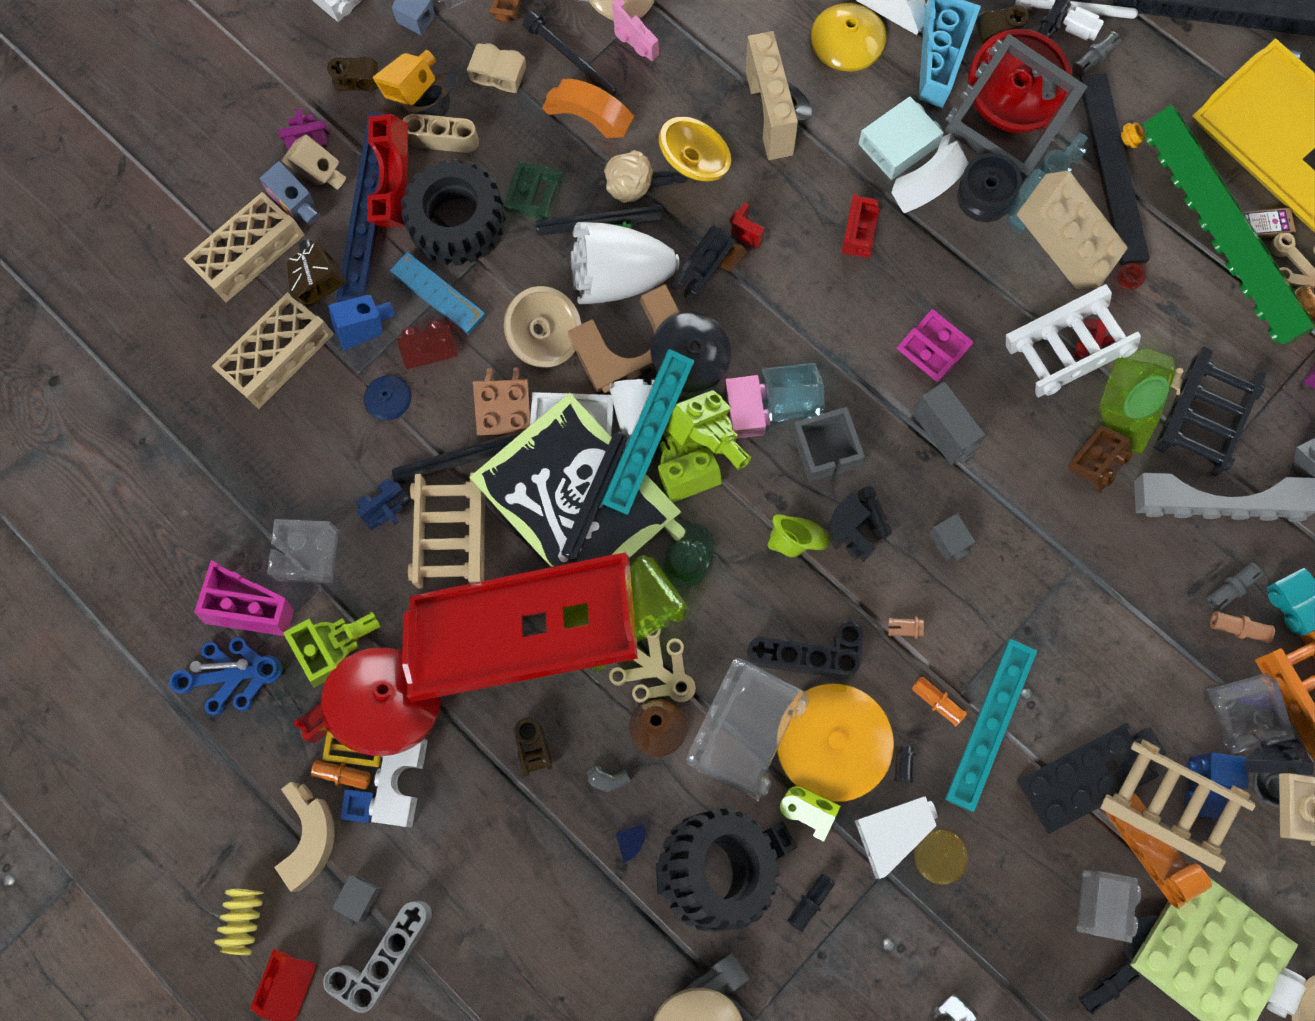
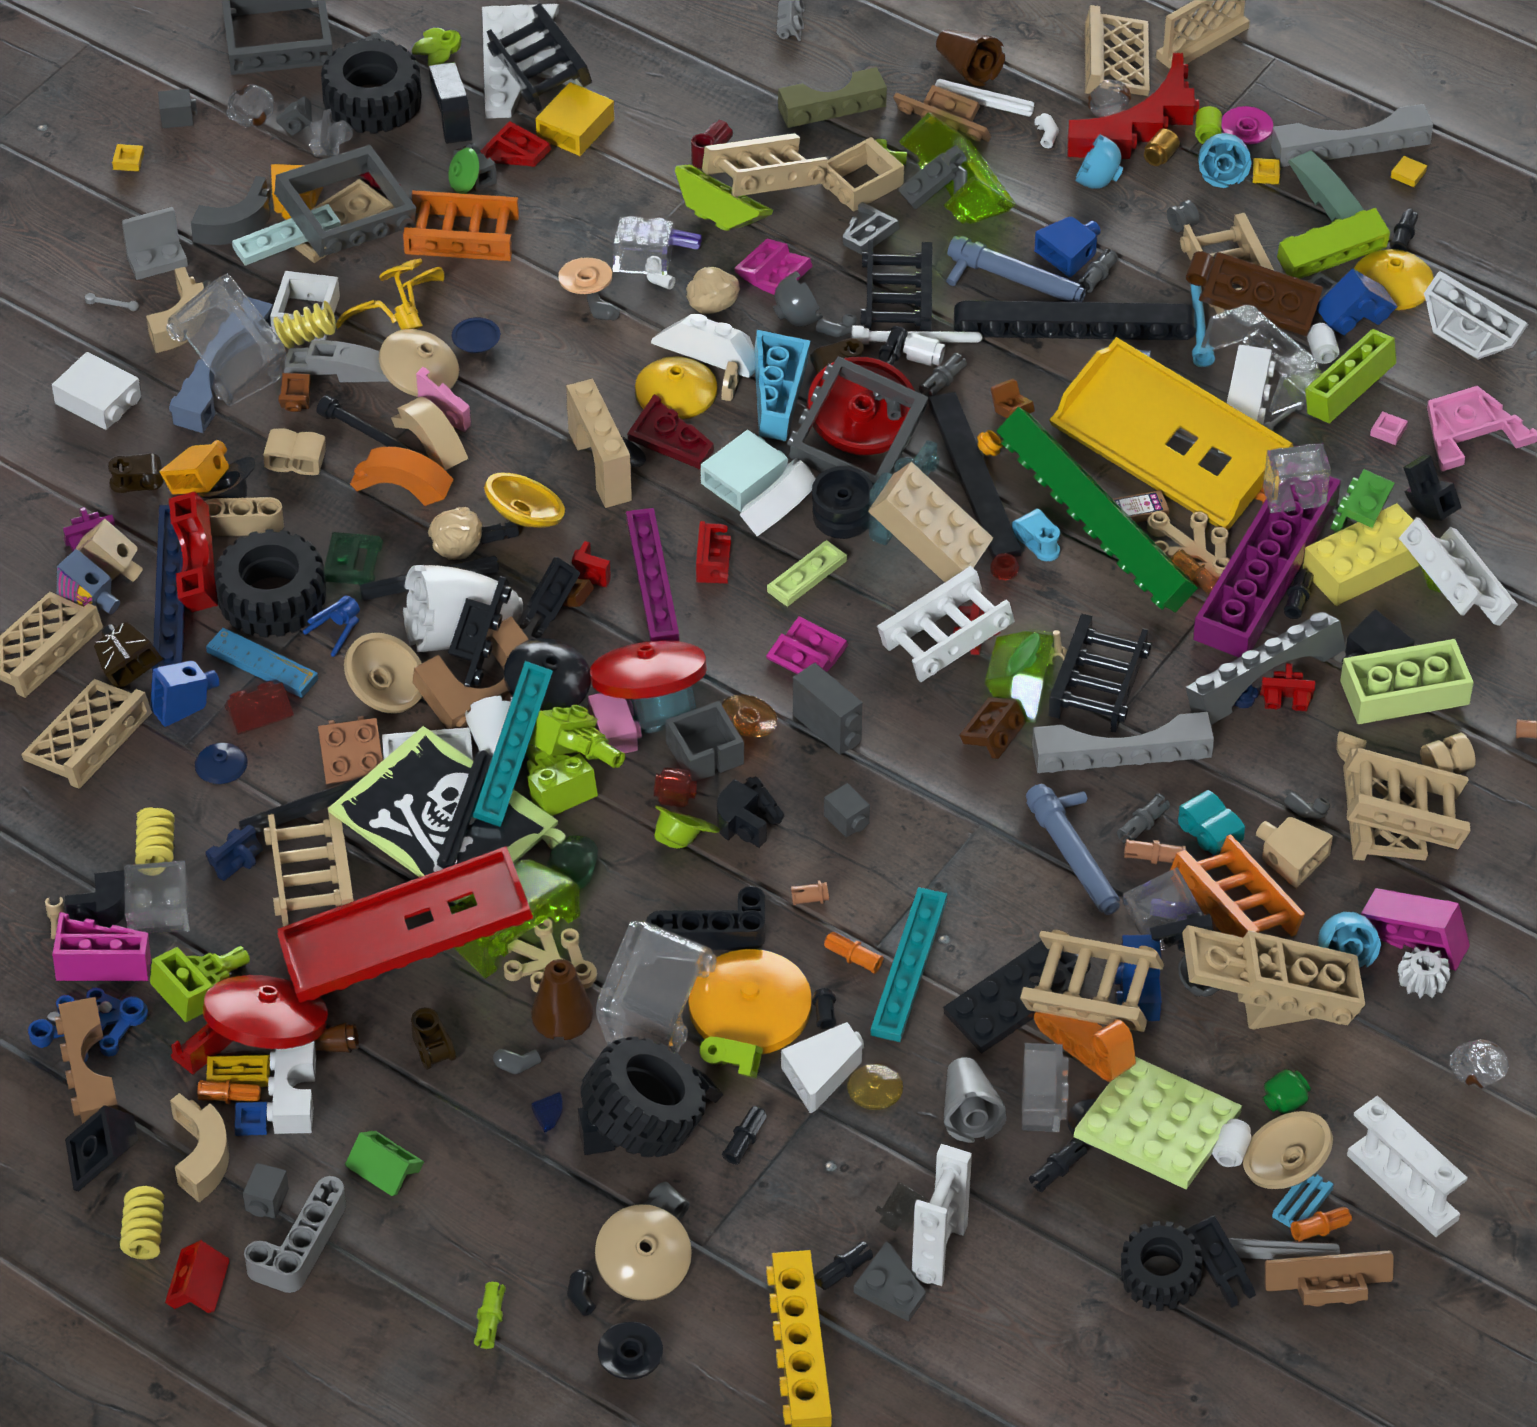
camera: 15 degrees left, 25 degrees down
(214, 763) = (82, 1029): none -> medium nougat arch
(215, 825) = (99, 1144): none -> black slope
(216, 546) = (53, 913): none -> tan hand
(257, 547) = (103, 905): none -> black brick
(311, 481) = (154, 836): none -> light yellow piece
(449, 731) = (338, 1039): none -> reddish brown cone
(471, 877) = (382, 1161): none -> bright green panel
(515, 249) = (341, 613): none -> blue plant
(621, 63) = (432, 430): none -> tan arch
(629, 299) = (475, 631): none -> black bracket
(785, 358) = (648, 669): none -> red dish
(793, 489) = (674, 787): none -> clear red head
(802, 245) = (652, 575): none -> magenta plate
(836, 90) = (669, 435): none -> dark red wing
(878, 411) = (750, 715): none -> clear orange dish
(899, 37) = (730, 381): none -> tan tile
(944, 257) = (806, 573): none -> yellowish green tile
(1033, 901) = (971, 1103): none -> light grey cone
(1147, 571) = (1051, 815): none -> sand blue cylinder
(1157, 92) = (1007, 399): none -> dark orange bracket
(1168, 241) = (1038, 535): none -> medium azure piece

